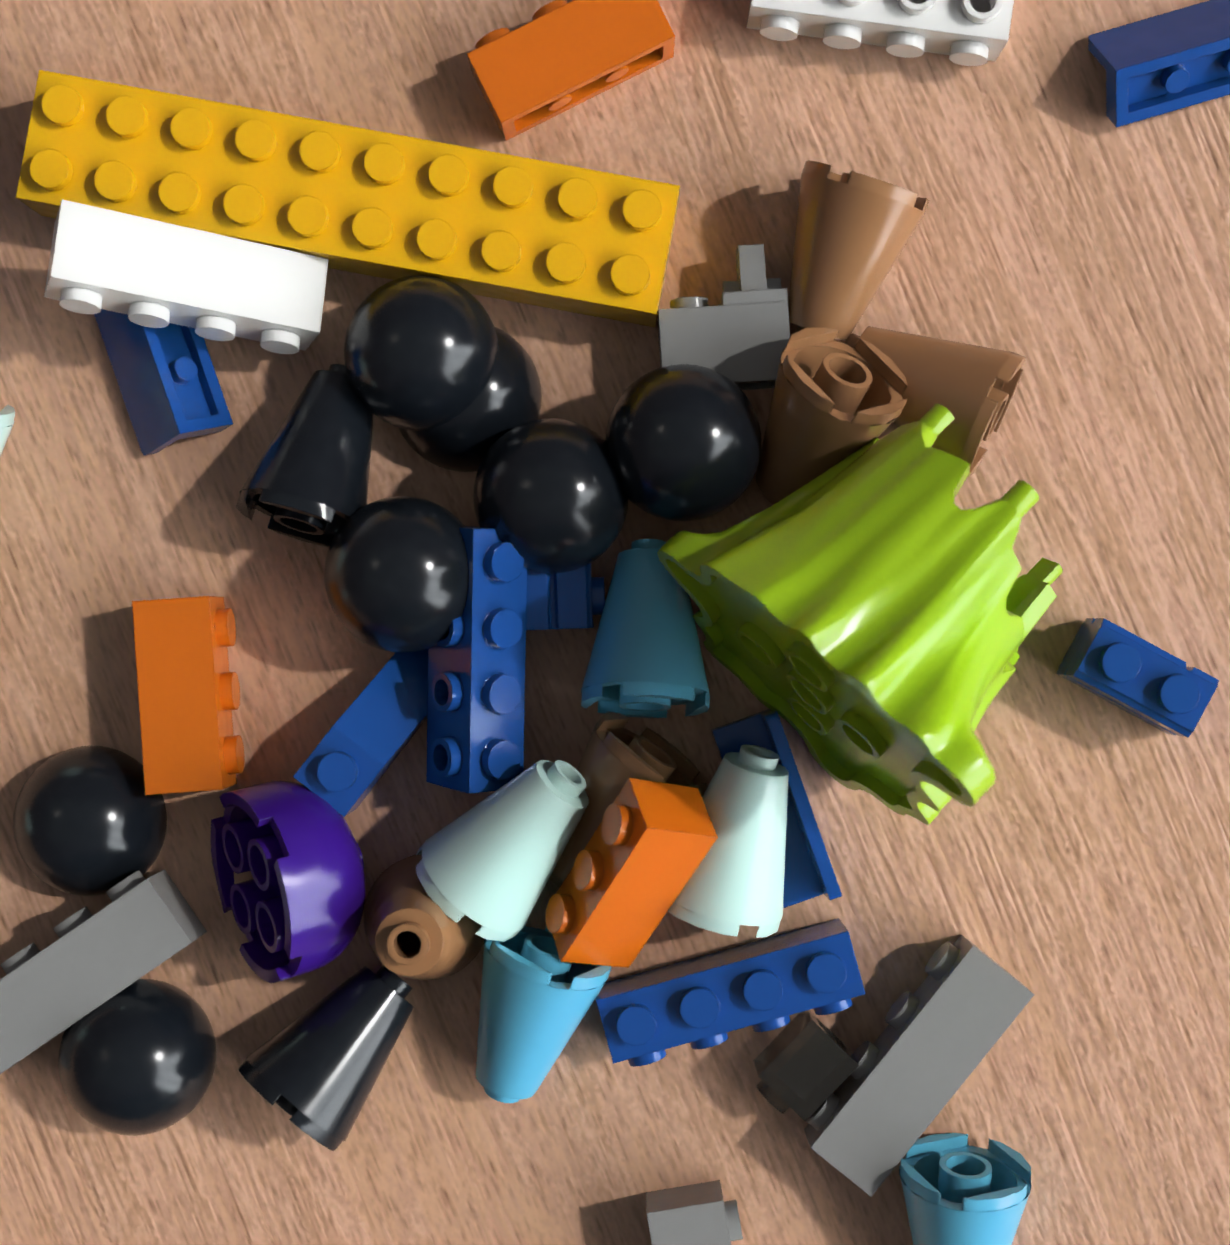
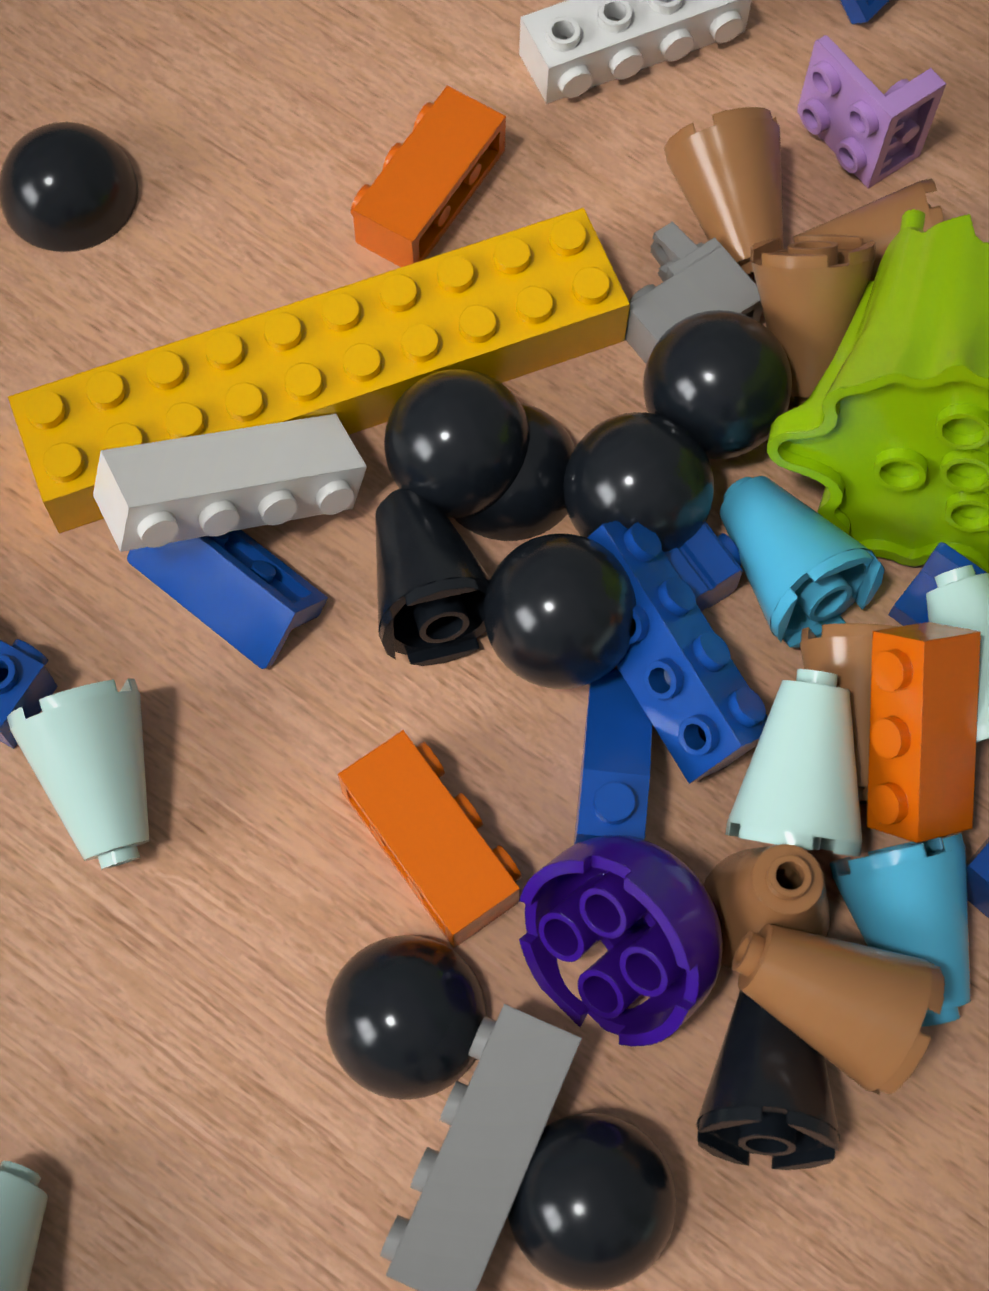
camera: 30 degrees left, 20 degrees down
(404, 1052) = (844, 1000): none -> medium nougat cone
(1007, 265) = (858, 122): none -> lavender bracket

